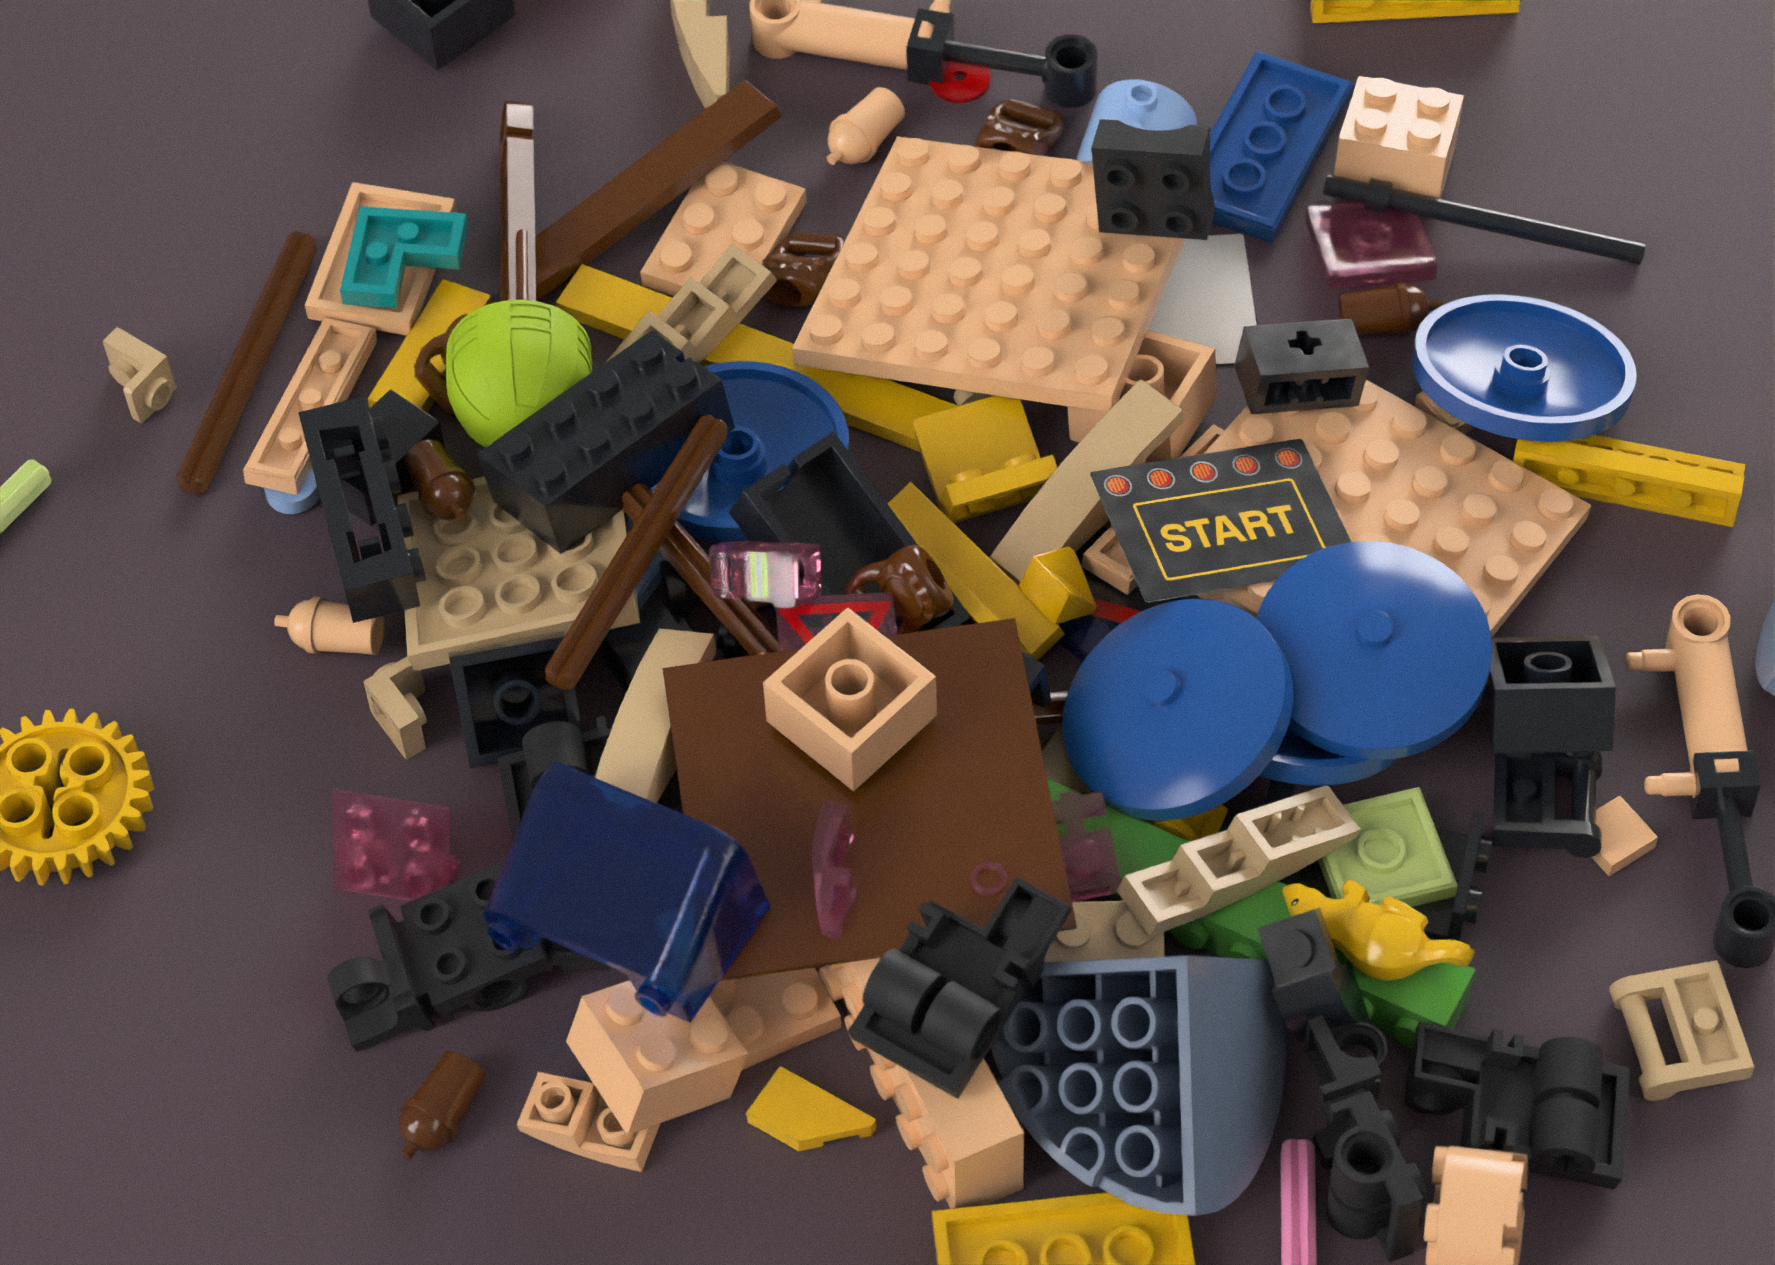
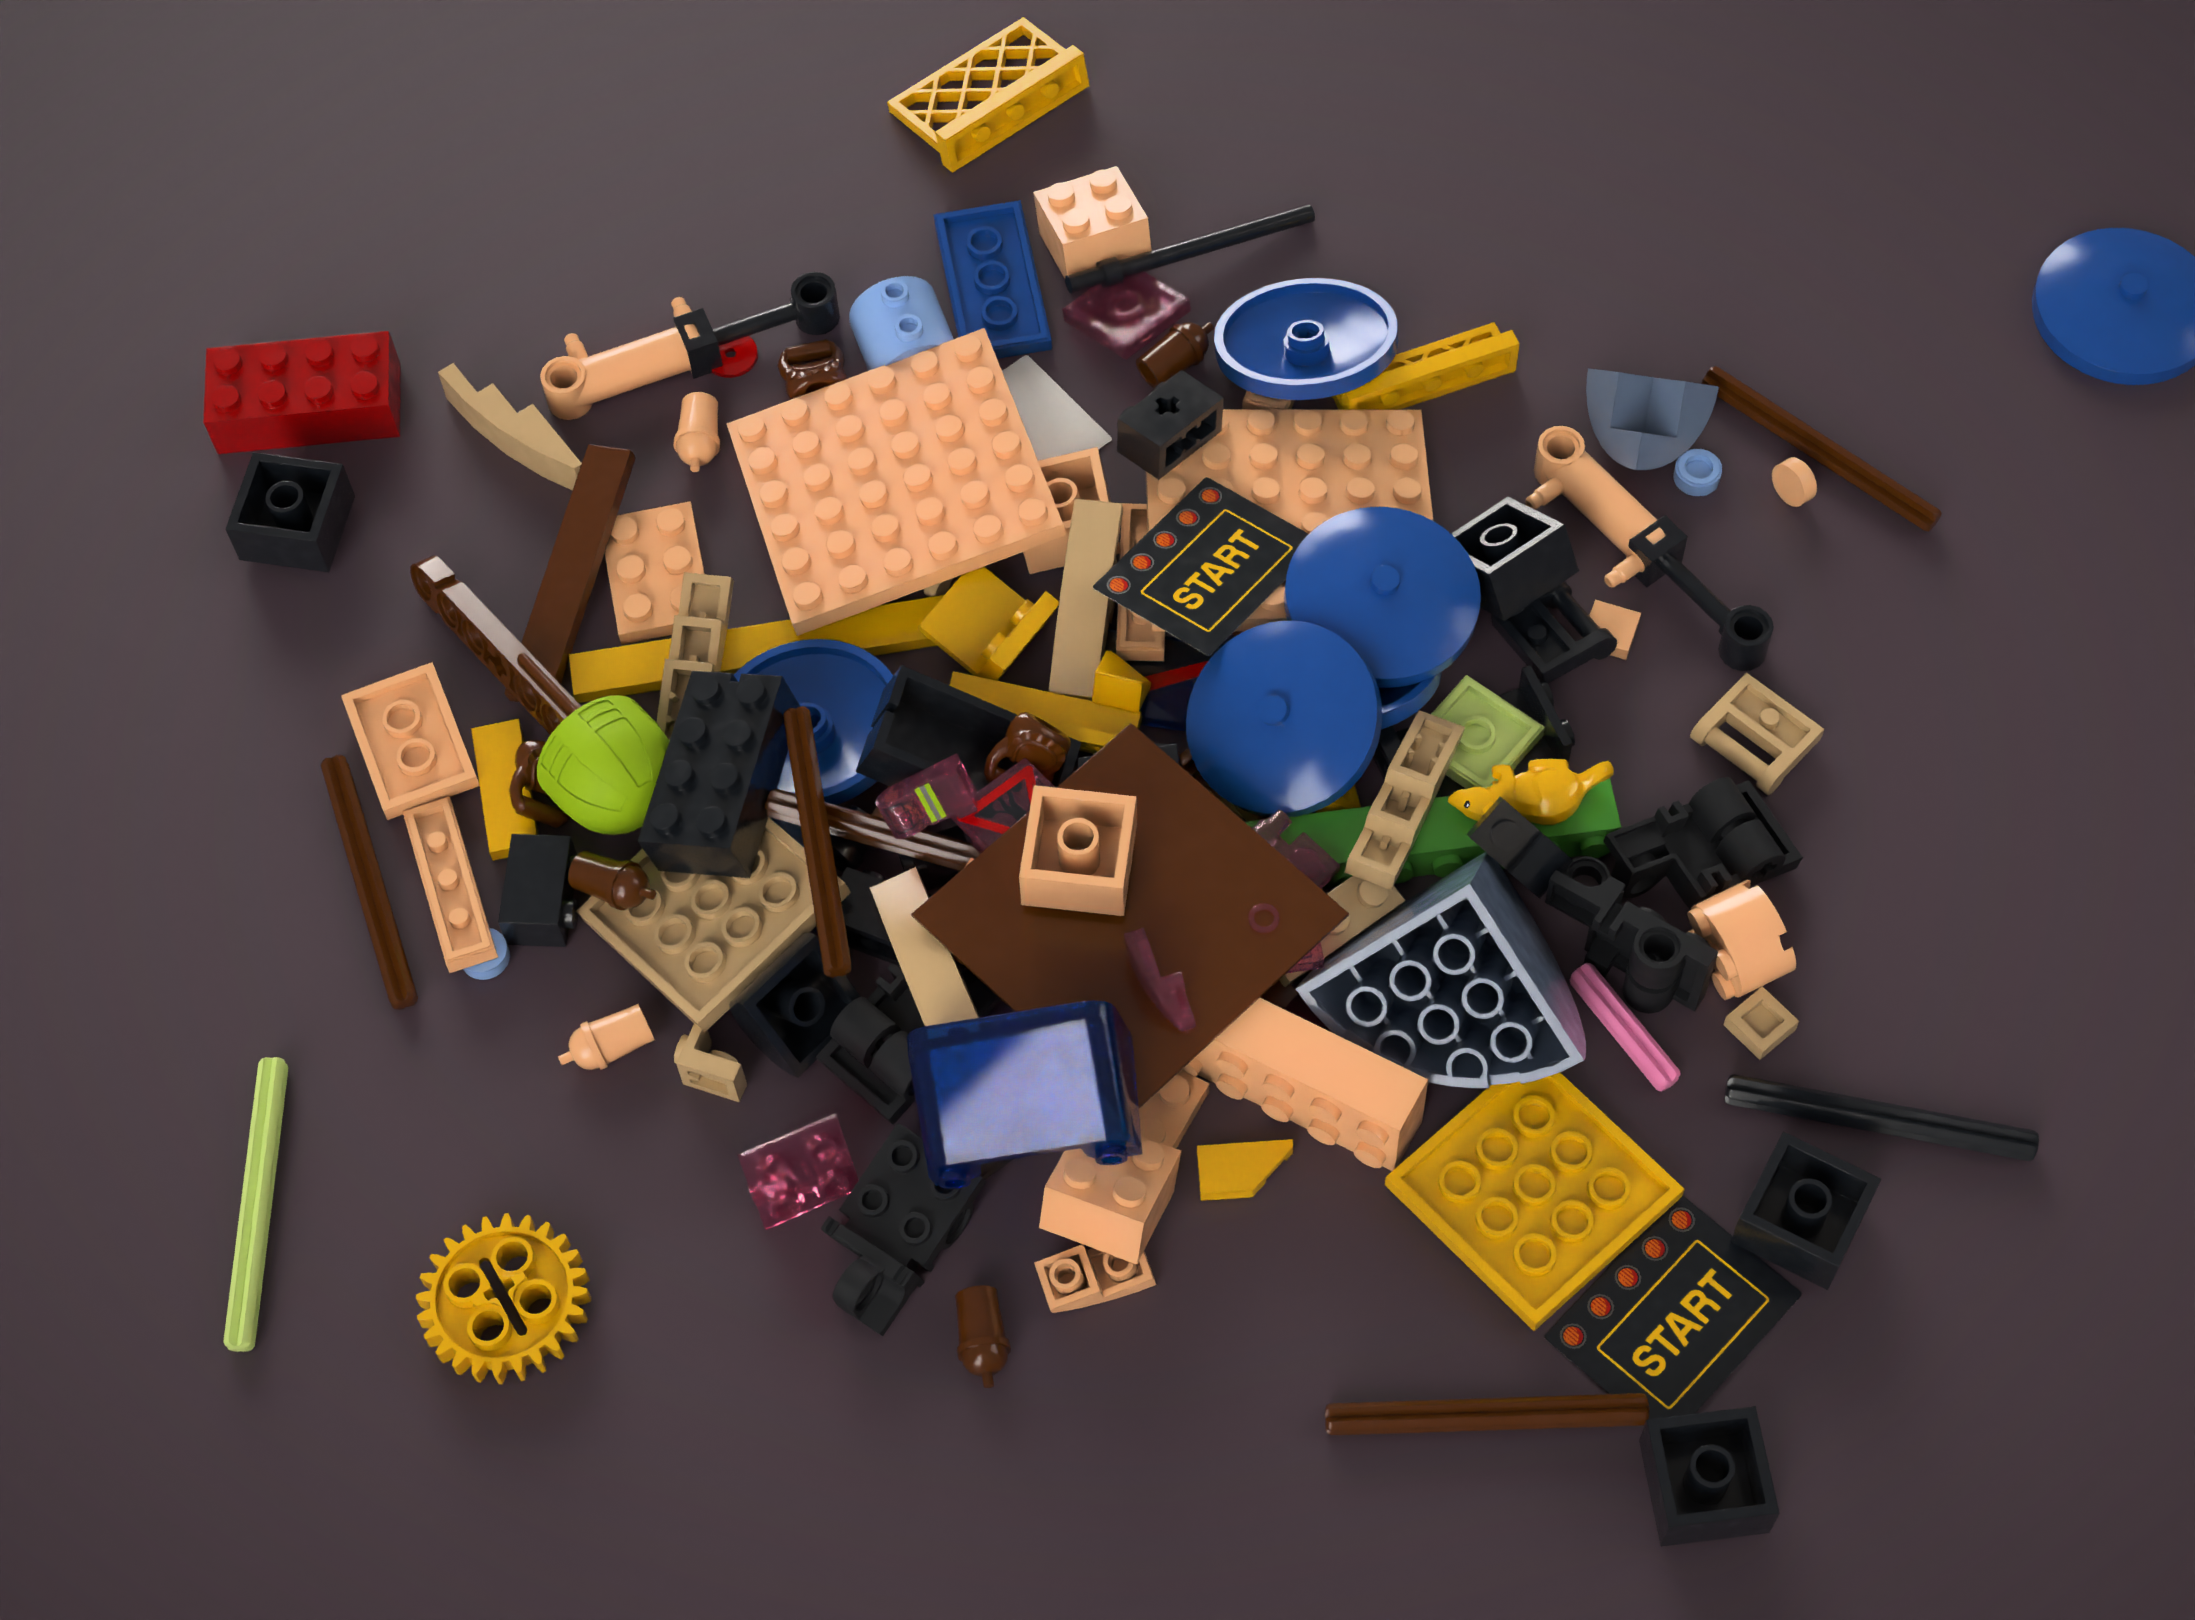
camera: 35 degrees left, 5 degrees up
(141, 371) = (293, 934): tan bracket -> none
(380, 581) = (514, 904): black brick -> none
(391, 240) = (417, 722): teal plate -> none
(800, 276) = (746, 566): reddish brown piece -> none
(956, 985) = (1312, 1008): black plate -> none
(1153, 180) = (974, 348): black brick -> none

